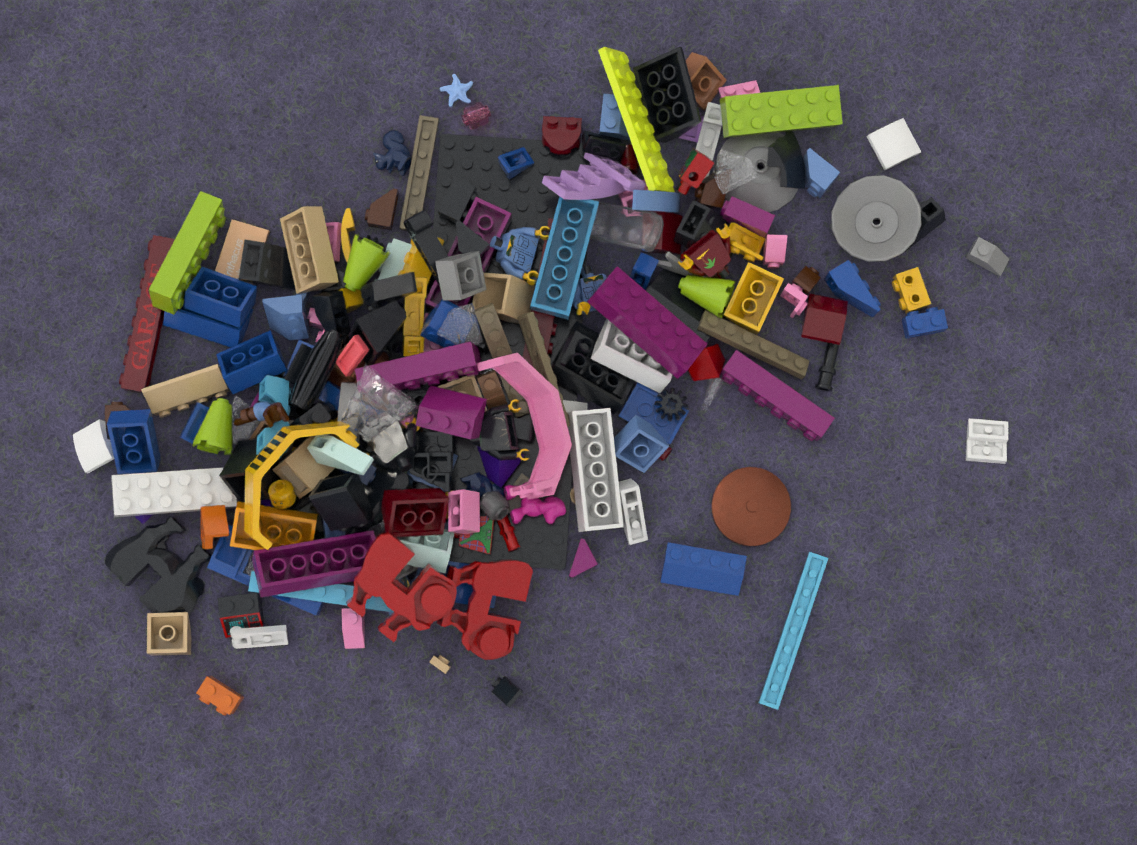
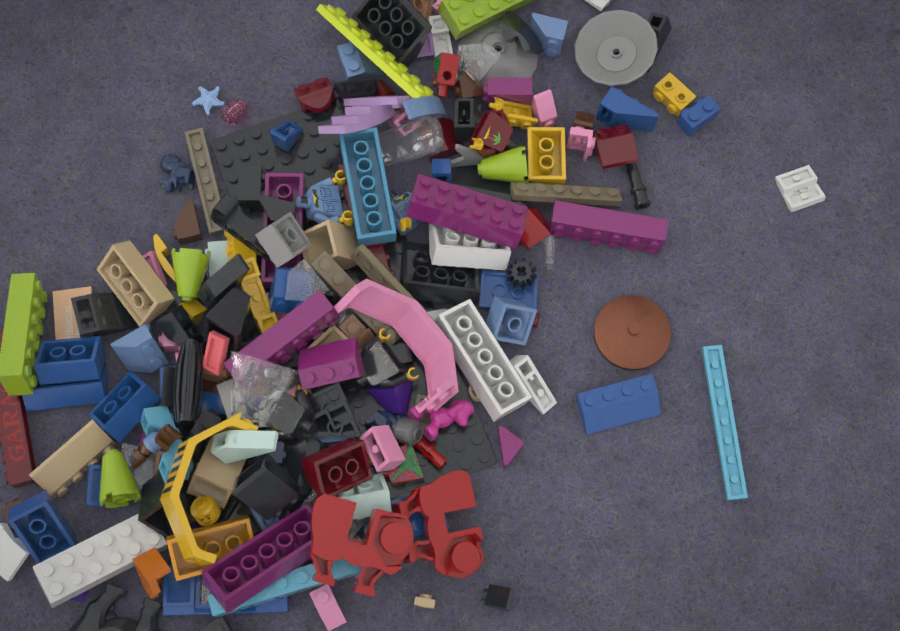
camera: 30 degrees left, 10 degrees down
(987, 256) = (720, 41): light grey slope -> none

